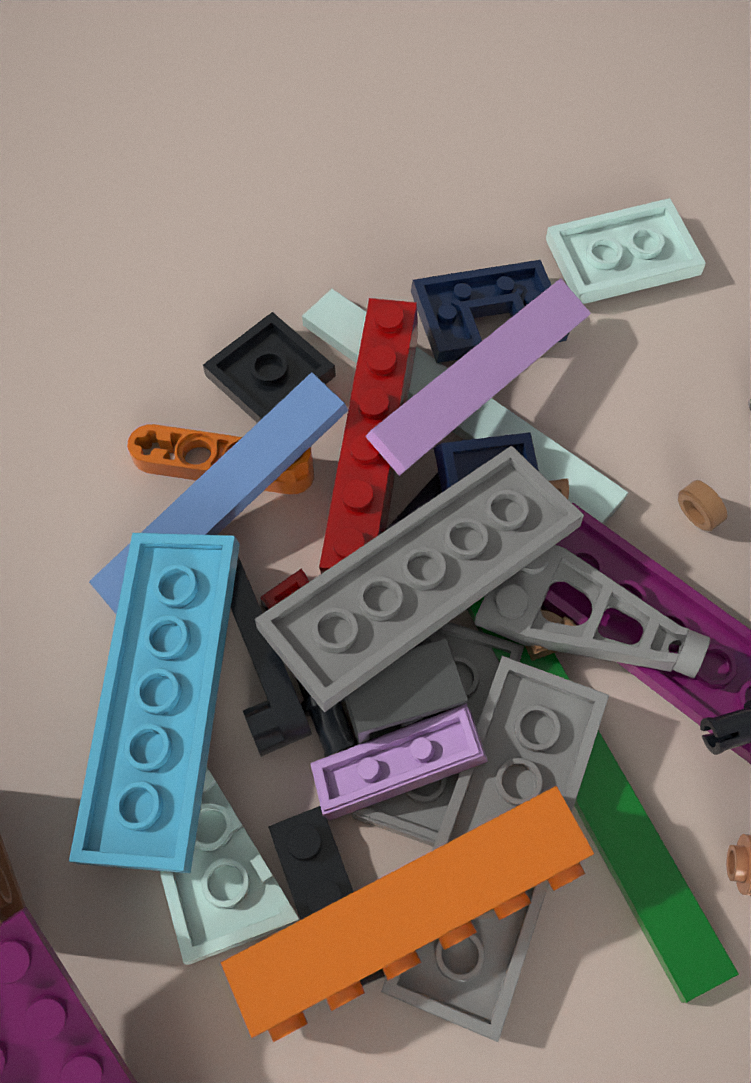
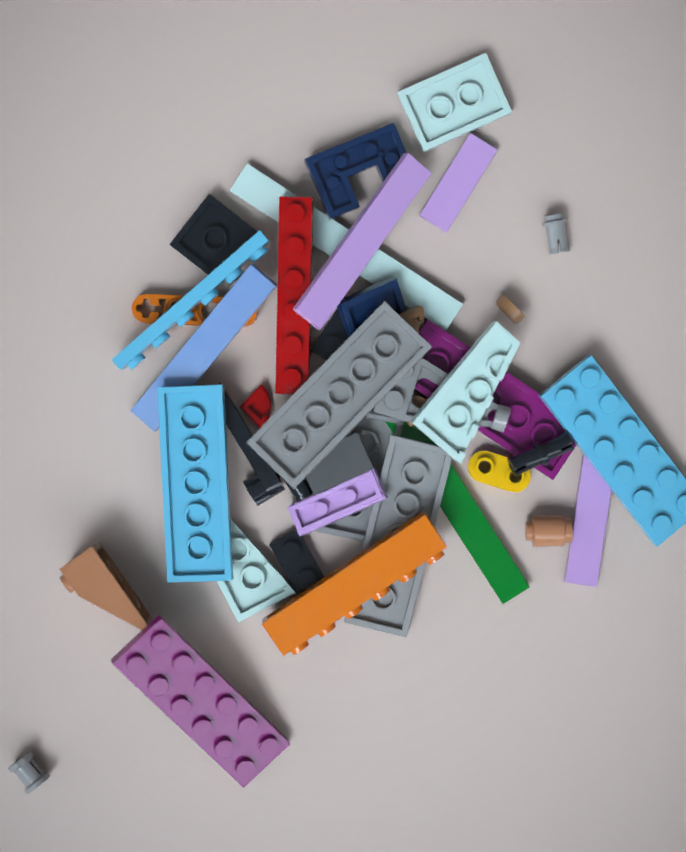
camera: 10 degrees left, 25 degrees up
(205, 431) = (182, 312): none -> medium azure plate
(624, 345) = (458, 182): none -> lavender tile
(625, 611) = (460, 401): none -> light aqua wing
(680, 758) = (498, 473): none -> yellow plate

